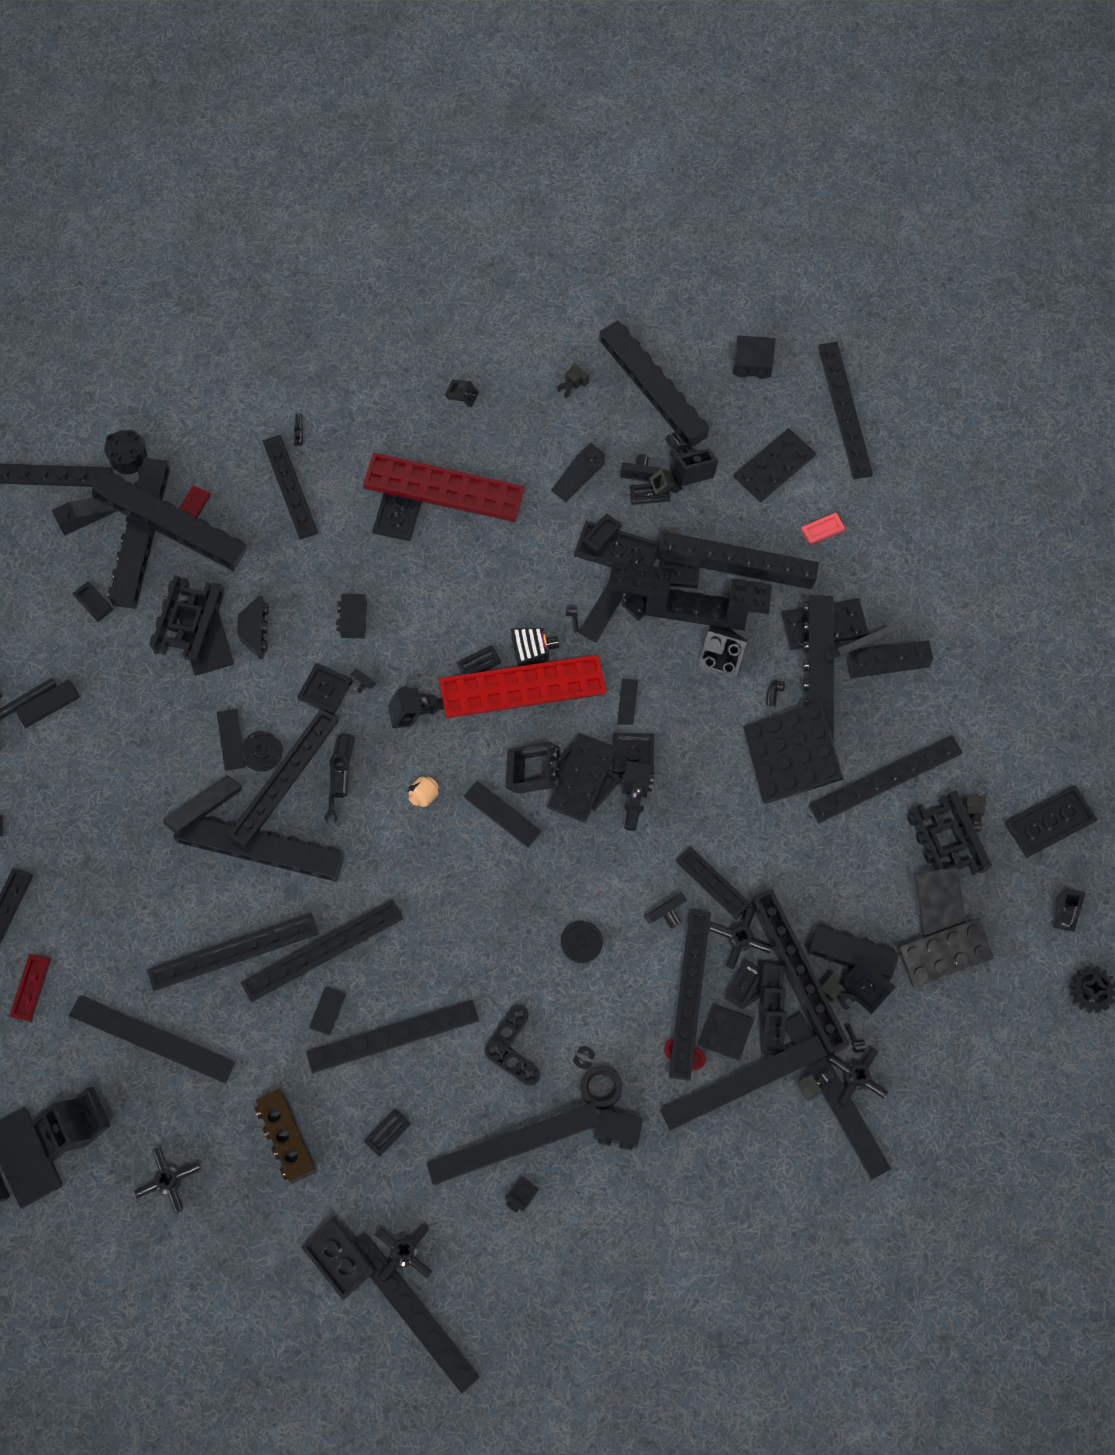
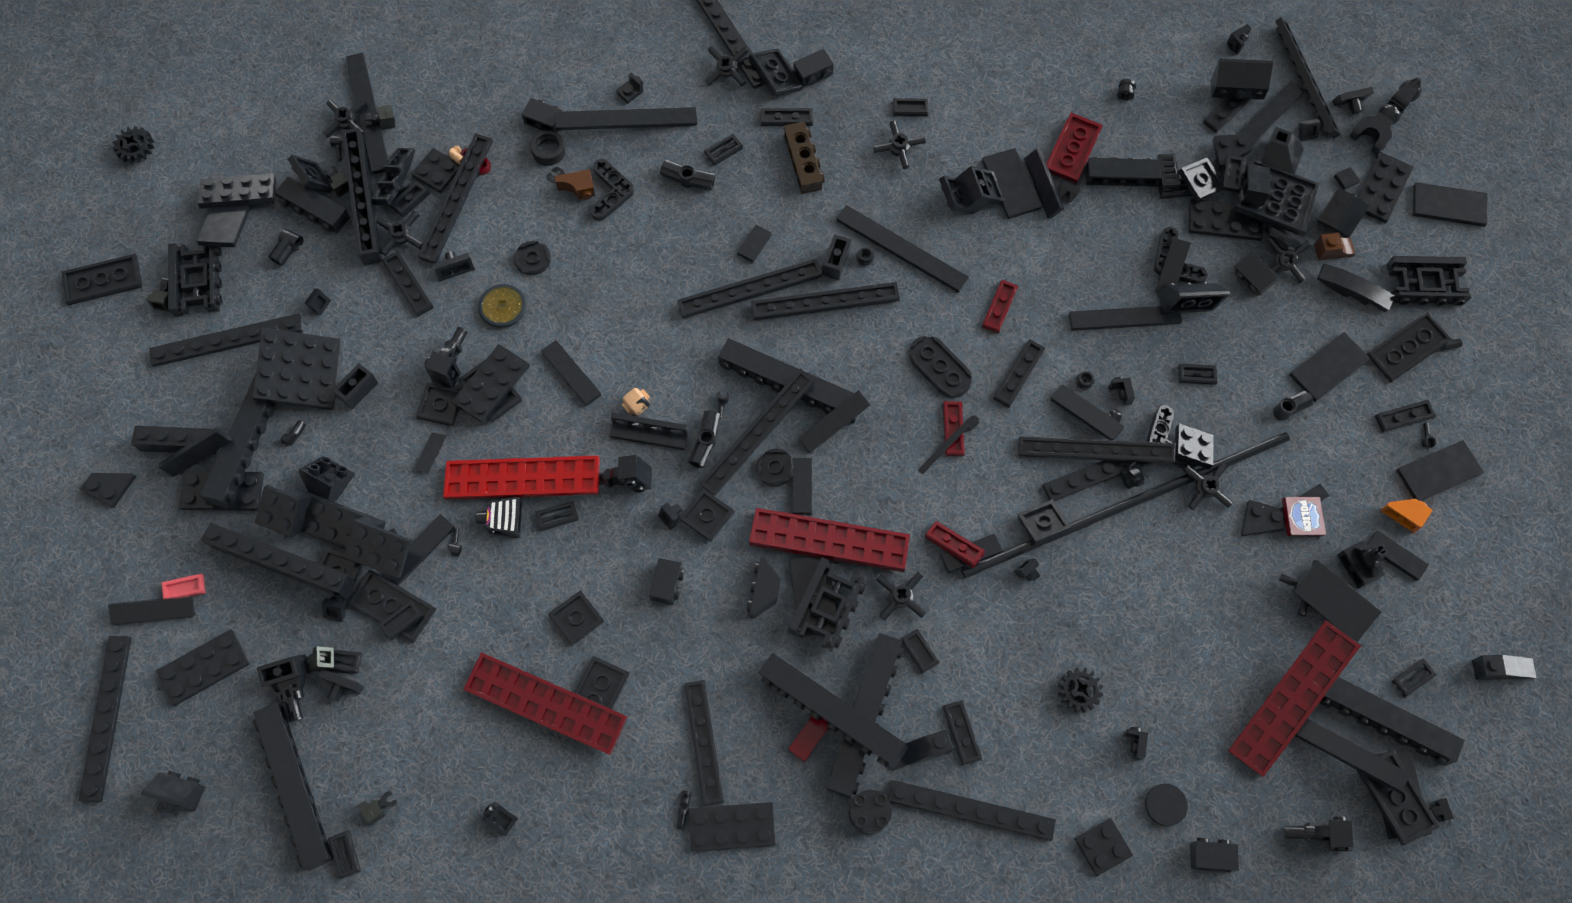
camera: 170 degrees left, 0 degrees up
(46, 537) = (962, 732): none -> black tile
(58, 840) = (971, 423): none -> black piece
(64, 705) = (954, 544): none -> dark red tile
(74, 832) = (952, 421): none -> dark red tile
(94, 901) = (940, 366): none -> black tile
(118, 650) = (904, 602): none -> black bar
(159, 1245) = (910, 107): none -> black tile
(191, 1013) = (865, 251): none -> black plate
(193, 686) = (829, 540): none -> dark red plate
(225, 1003) = (836, 257): none -> black brick
(251, 423) = (732, 826): none -> black plate
(290, 1274) = (813, 68): none -> black brick
(315, 1197) = (786, 116): none -> black tile
(392, 1036) = (704, 215): black plate -> none
(403, 763) = (648, 431): none -> black fence
(408, 1079) = (697, 178): none -> black piece
(435, 571) = (576, 618): none -> black tile
(516, 767) = (549, 403): black window -> none
(549, 1044) = (578, 183): none -> reddish brown arch
(579, 472) = (403, 694): black slope -> none
(598, 356) = (349, 872): none -> black tile
(602, 889) = (505, 316): none -> clear yellow wheel
(710, 1052) = (455, 155): none -> light nougat arm
(725, 747) = (355, 386): none -> black brick
(743, 1083) = (434, 130): black tile -> none
(803, 836) = (317, 301): none -> black tile
(843, 502) = (151, 609): none -> black tile
(862, 900) = (287, 243): none -> black piece
(939, 606) = (108, 486): none -> black wing
(1068, 909) = (121, 203): black slope -> none

